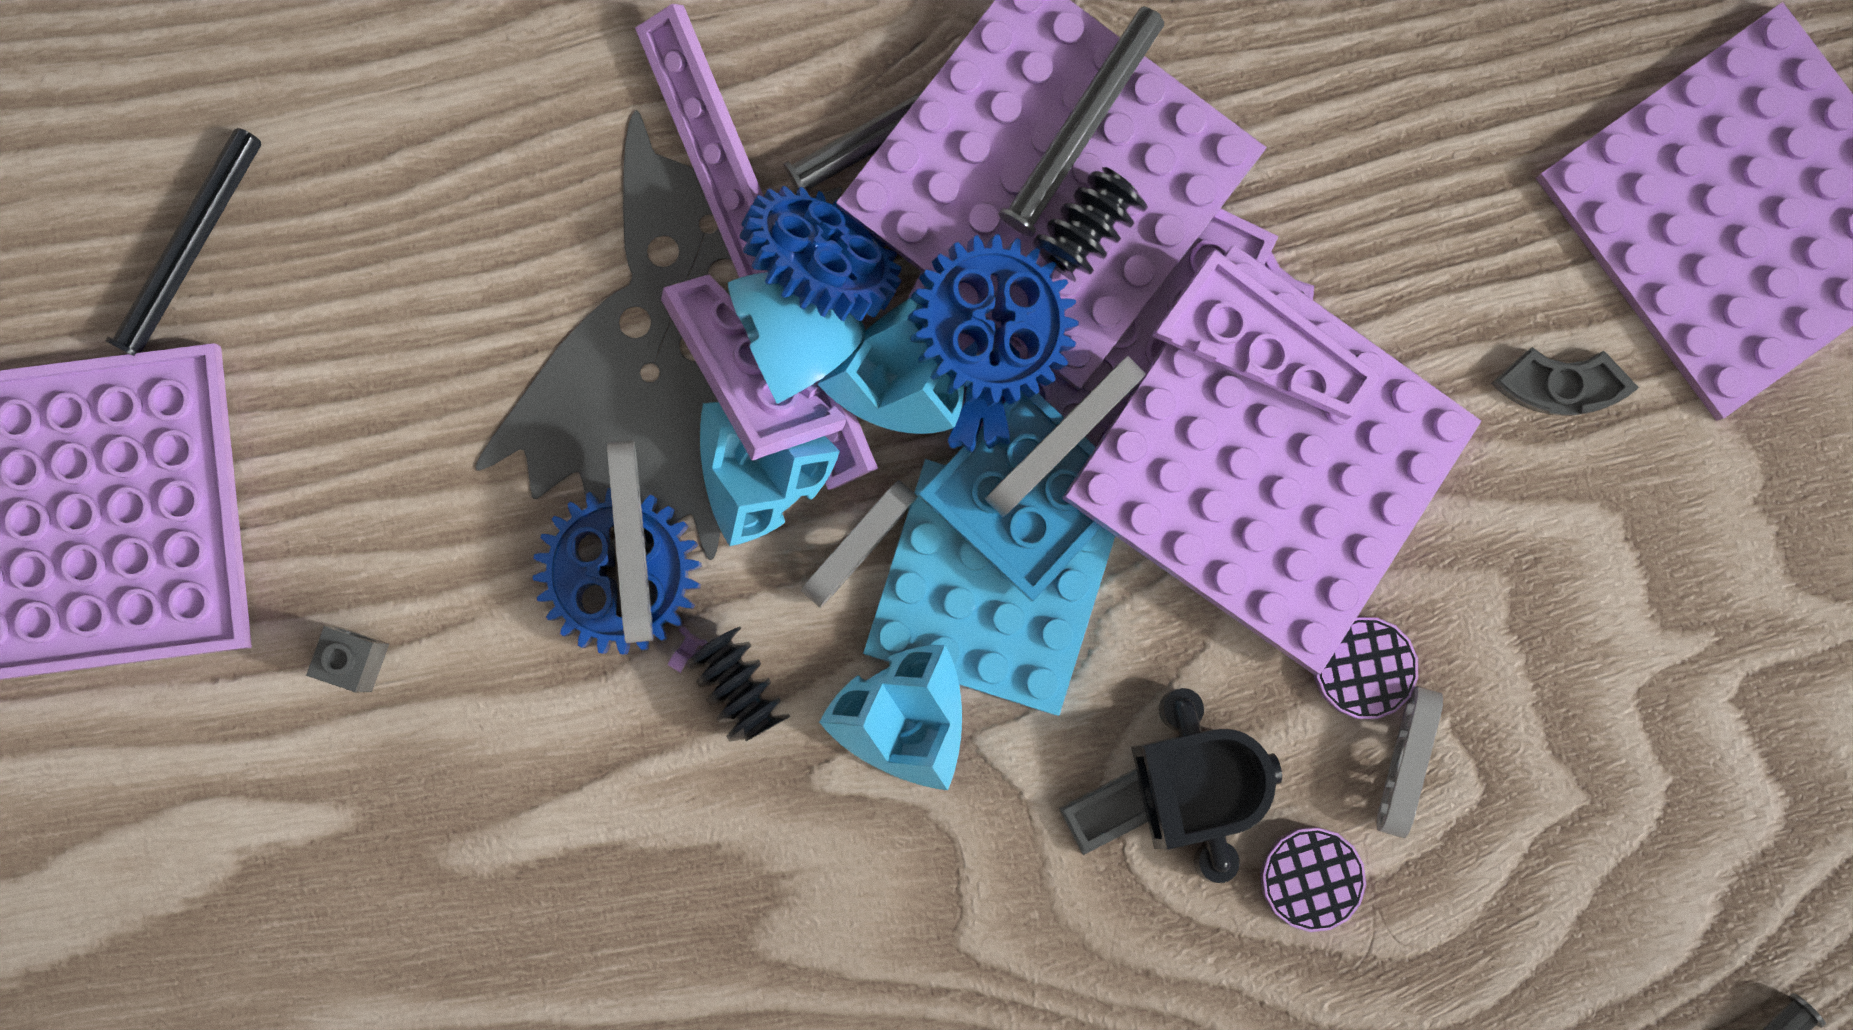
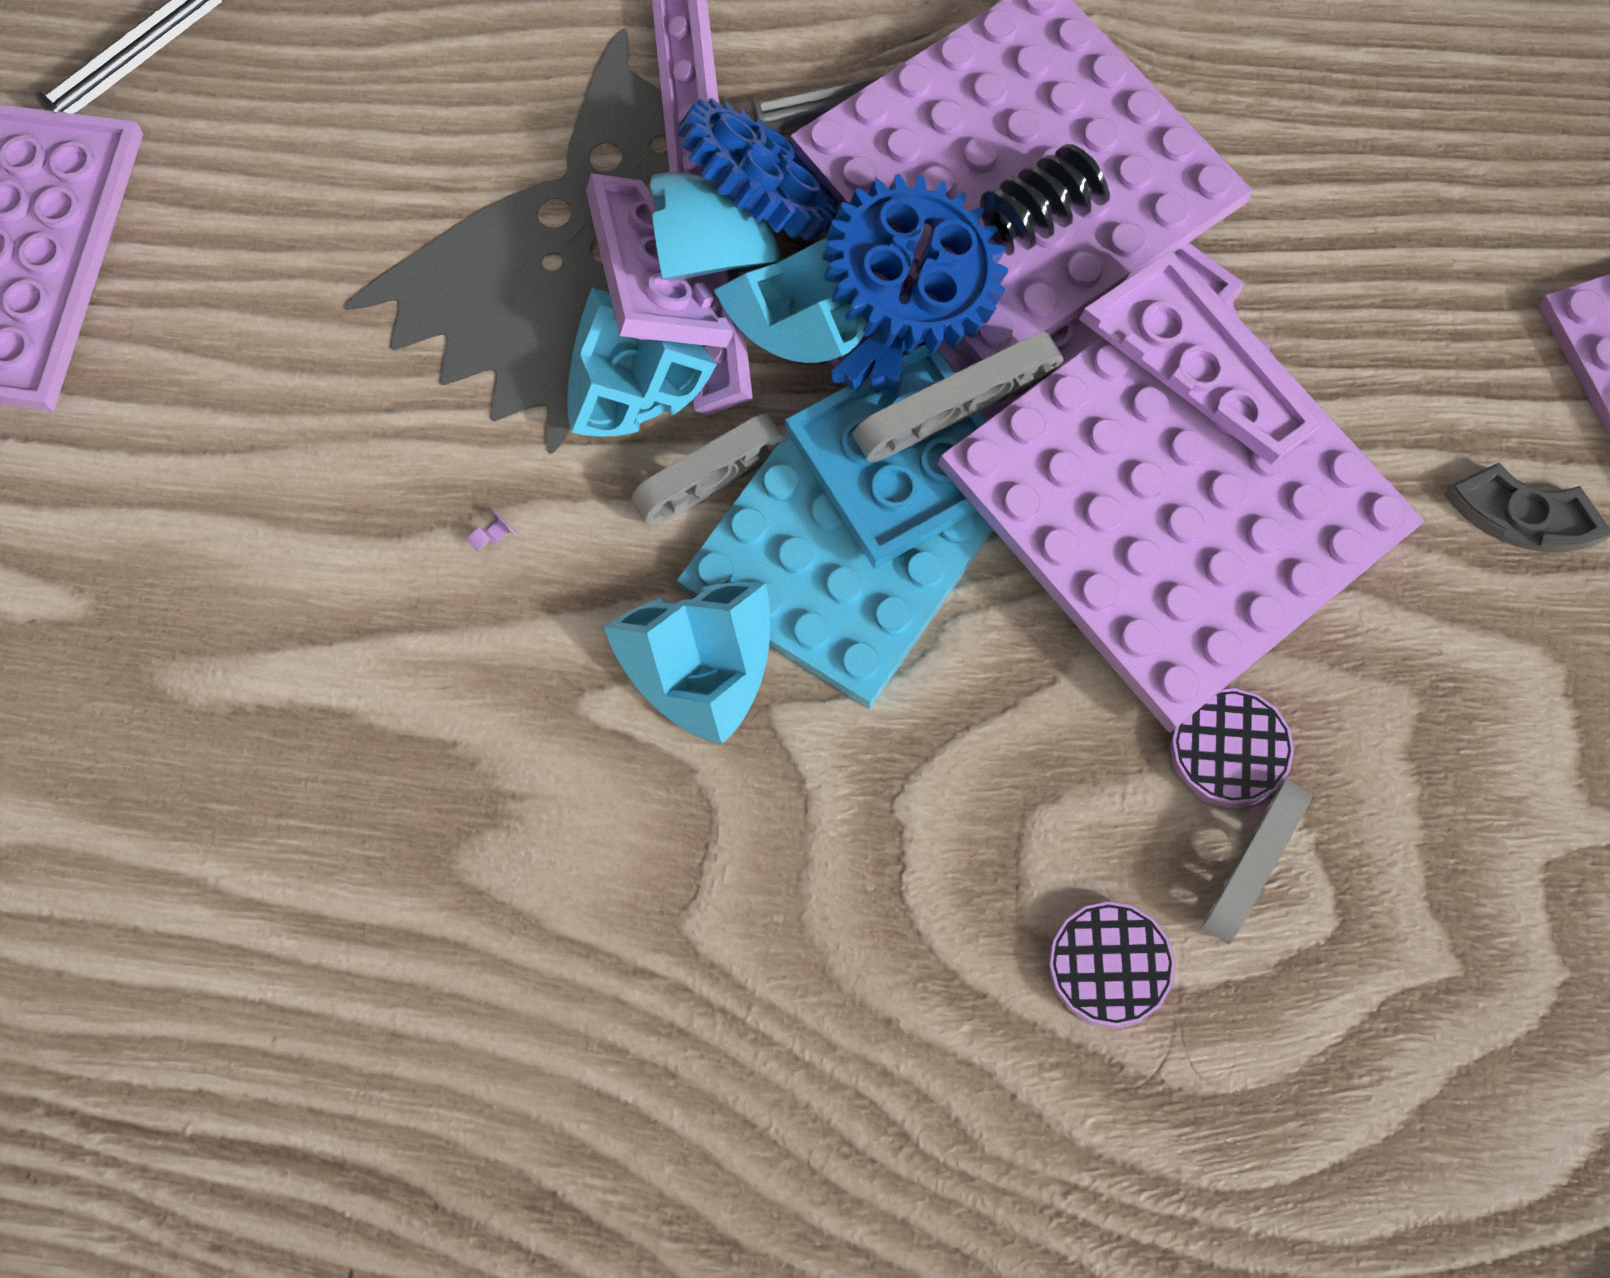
camera: 20 degrees right, 15 degrees down
(347, 659) = (141, 440): dark grey brick -> none
(570, 576) = (400, 423): blue gear -> none
(630, 541) = (466, 388): light grey beam -> none
(736, 687) = (527, 573): black piece -> none
(1083, 121) = (1062, 112): dark grey axle -> none
(1106, 812) = (906, 823): dark grey tile -> none
(1203, 785) = (1010, 817): black piece -> none

